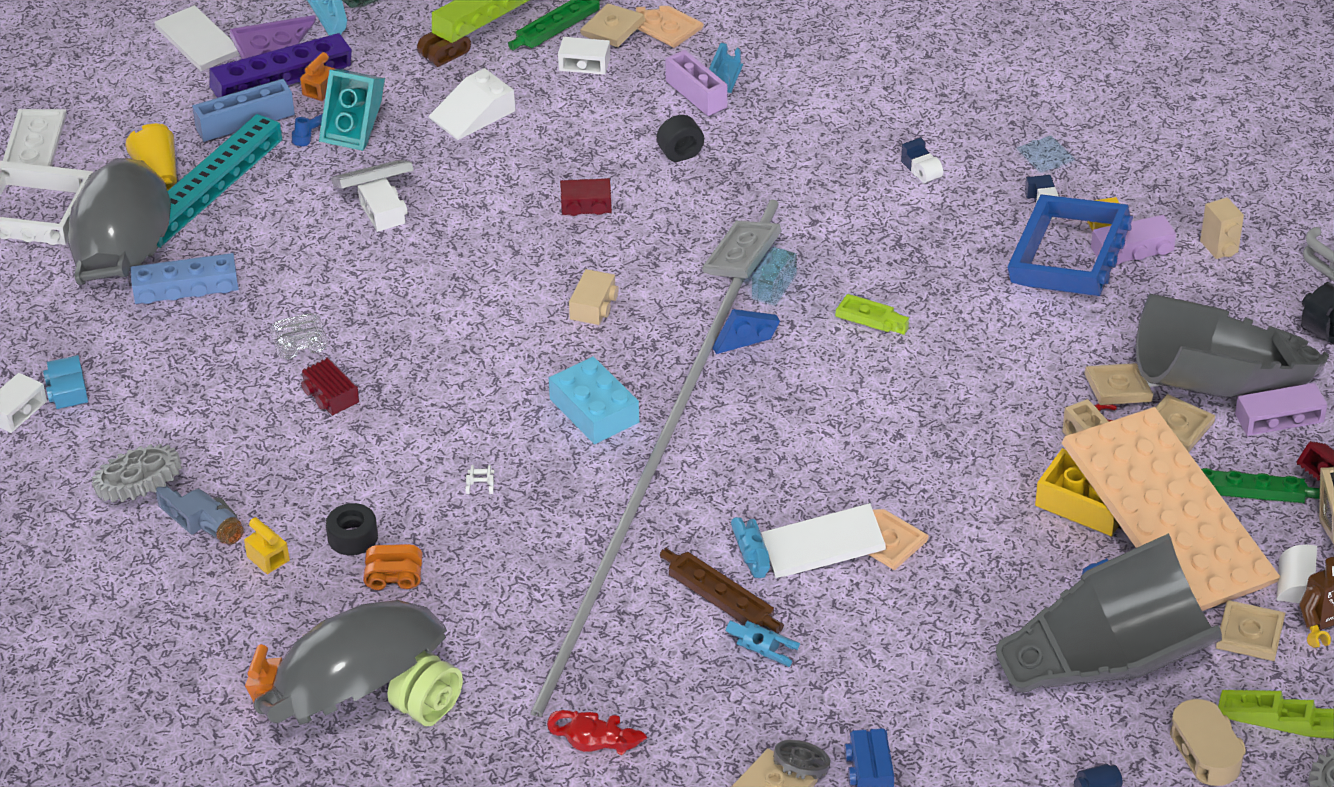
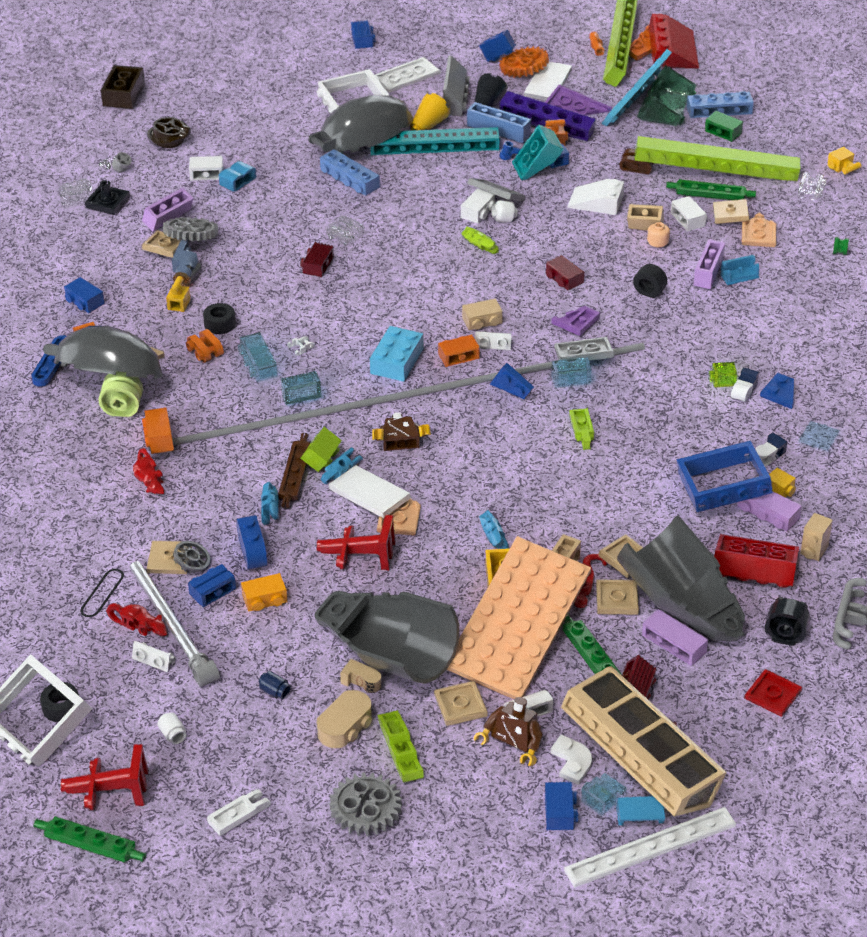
camera: 55 degrees right, 0 degrees up
(68, 476) = (167, 208): none -> lavender brick
(93, 37) = (497, 45): none -> blue brick
(120, 109) = (456, 87): none -> light grey slope
(130, 516) = (161, 244): none -> tan plate
(142, 35) = (524, 61): none -> orange gear
(154, 641) = (84, 295): none -> blue brick
(174, 89) = (490, 90): none -> black cone
(259, 736) = (46, 367): none -> blue plate
(417, 189) = (504, 211): none -> white head
(447, 233) = (480, 240): none -> lime hinge
(469, 526) = (257, 357): none -> clear light blue brick
(530, 682) = (157, 430): none -> orange brick
(561, 87) = (643, 216): none -> tan brick
(578, 512) = (300, 387): none -> clear light blue brick
(600, 94) = (658, 234): none -> light nougat head
(637, 347) = (458, 350): none -> orange brick
(647, 312) = (493, 340): none -> white hinge
(680, 229) = (577, 320): none -> medium lavender wing
(714, 546) = (321, 449): none -> lime brick
(746, 463) = (400, 433): none -> reddish brown torso
(830, 685) = (251, 542): none -> blue brick
(889, 166) = (723, 374): none -> clear neon green brick
(926, 718) = (264, 592): none -> light orange brick
(940, 565) = (370, 544): none -> red piece
(950, 143) = (780, 390): none -> blue wing
(985, 467) = (493, 530): none -> dark azure hinge
(1143, 693) = (361, 675): none -> tan leg
(1220, 282) = (756, 561): none -> red slope

